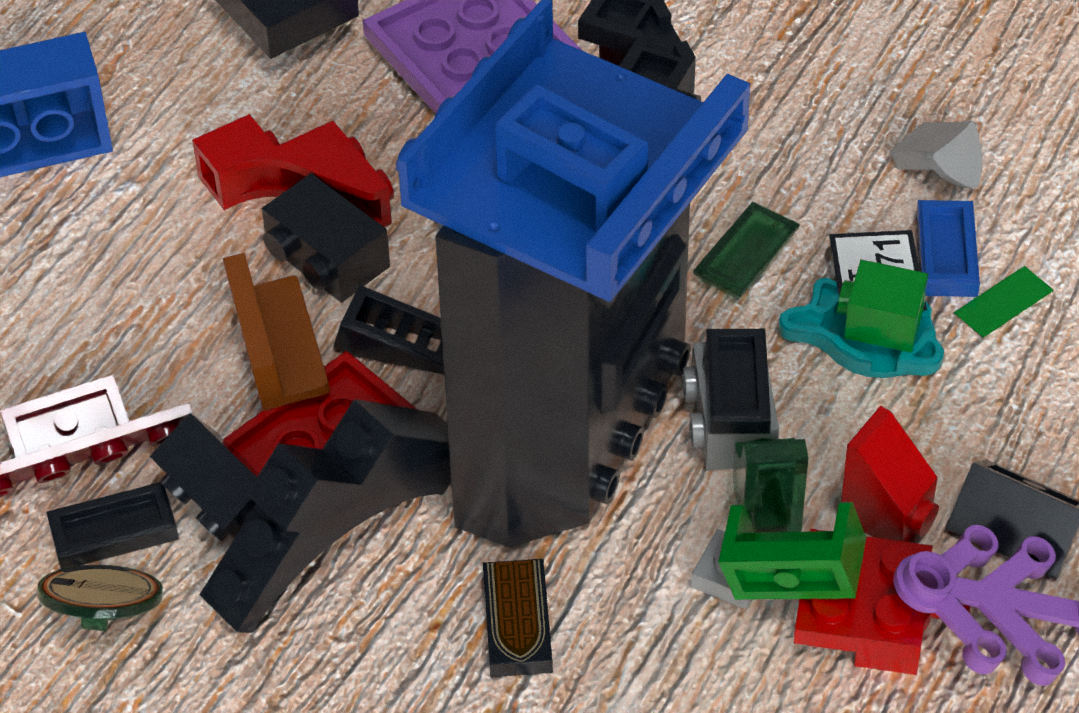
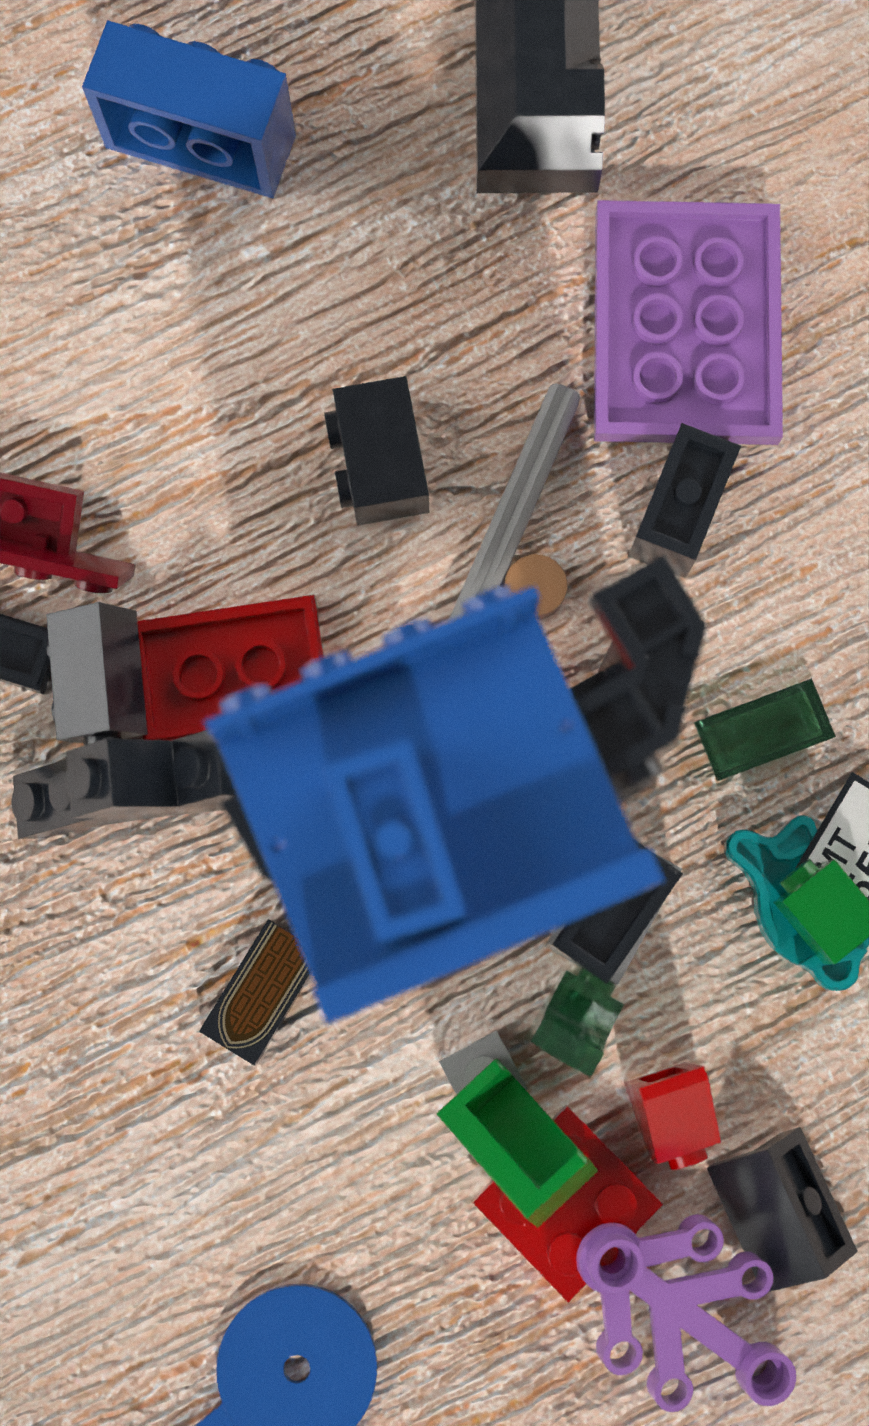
camera: 35 degrees right, 30 degrees up
(249, 163) = (373, 309): red arch -> none
(277, 336) = (257, 537): dark orange panel -> none
(376, 344) = (379, 573): black slope -> none

